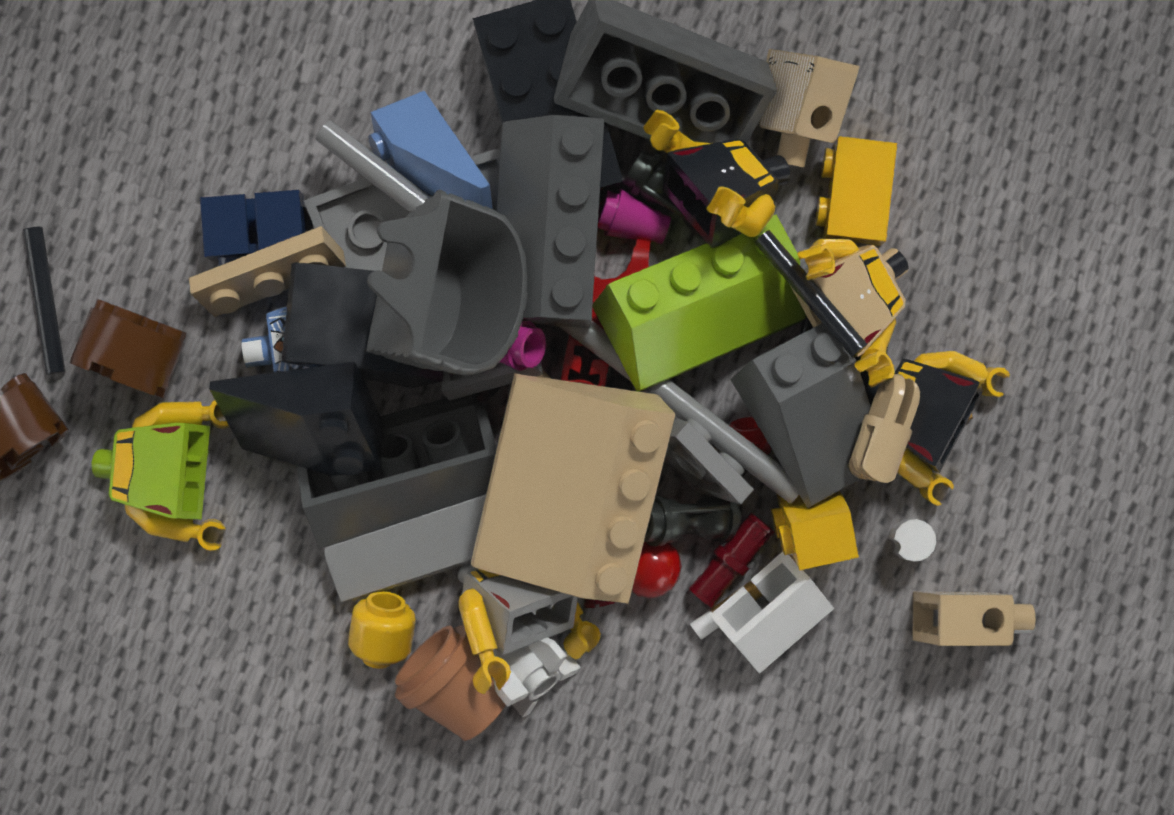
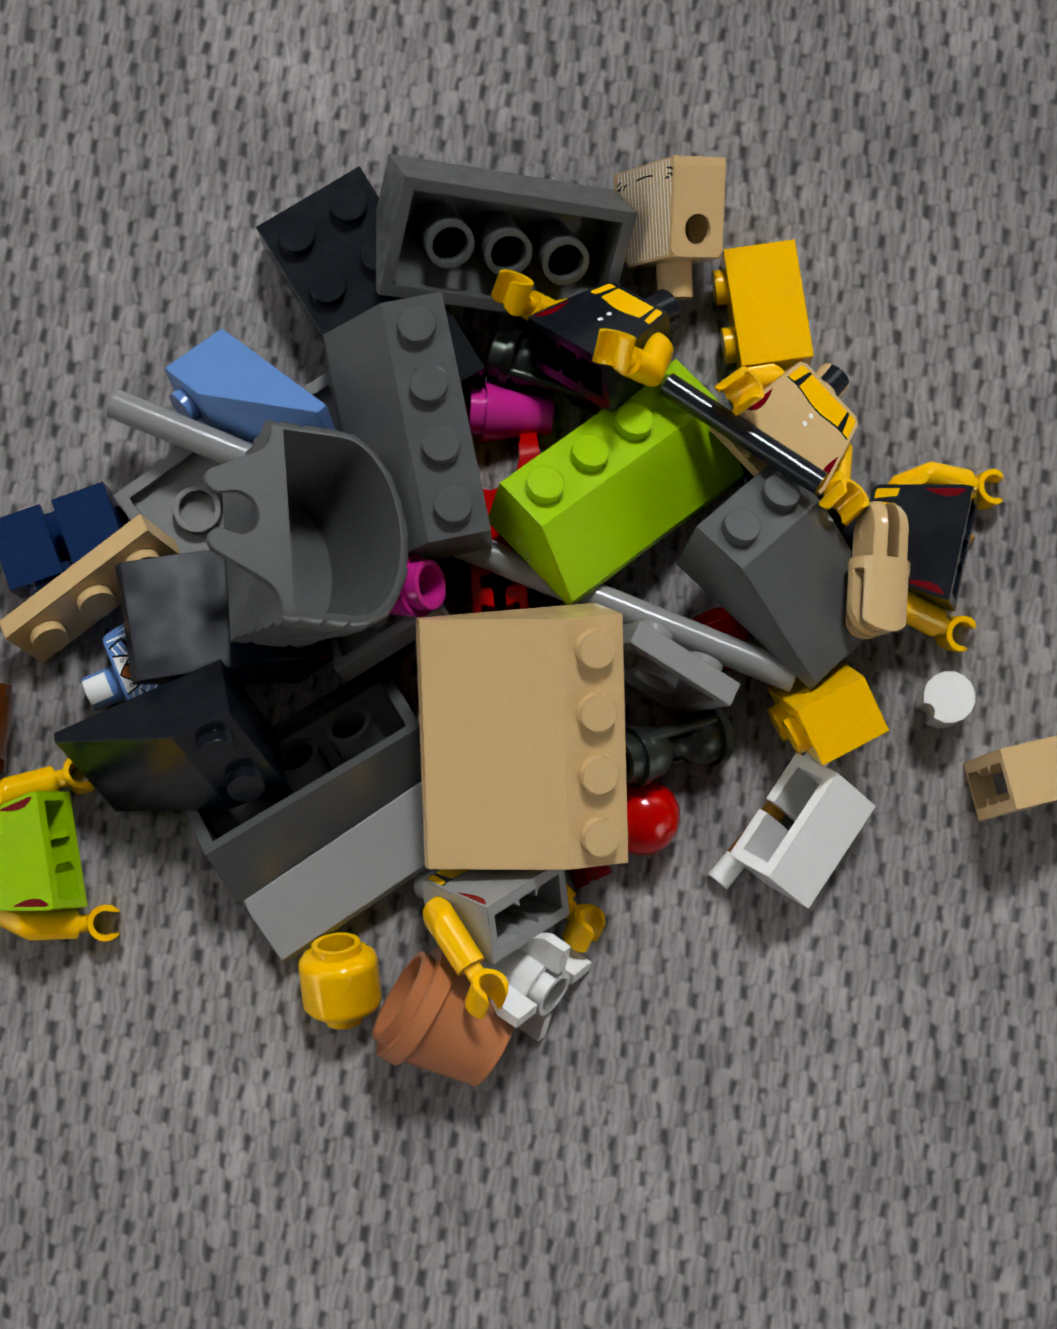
camera: 10 degrees left, 5 degrees down
(731, 560) = (737, 783): dark red pin -> none

